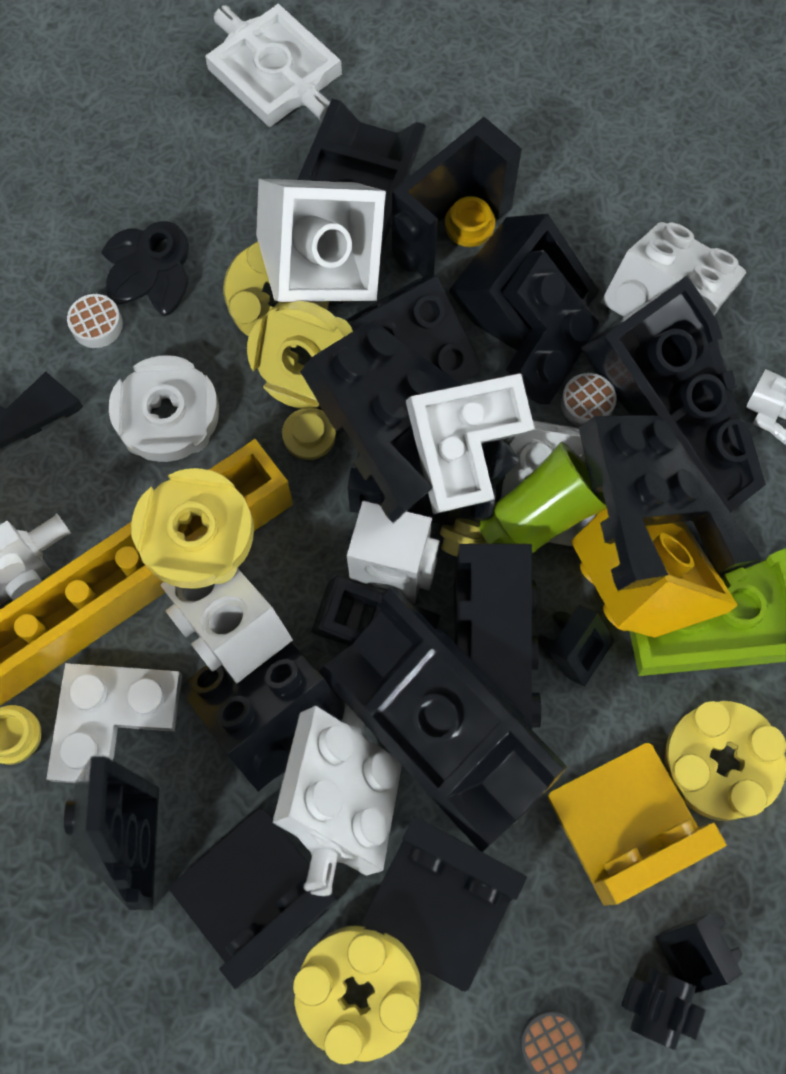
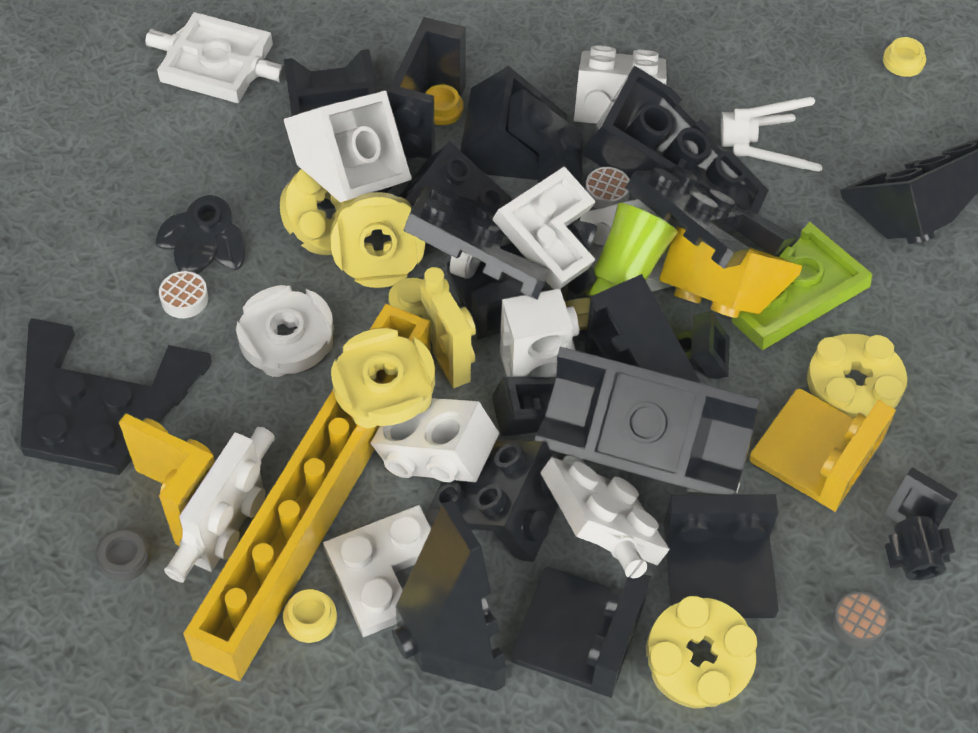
camera: 30 degrees left, 15 degrees down
(307, 495) = (449, 328): none -> light yellow plate

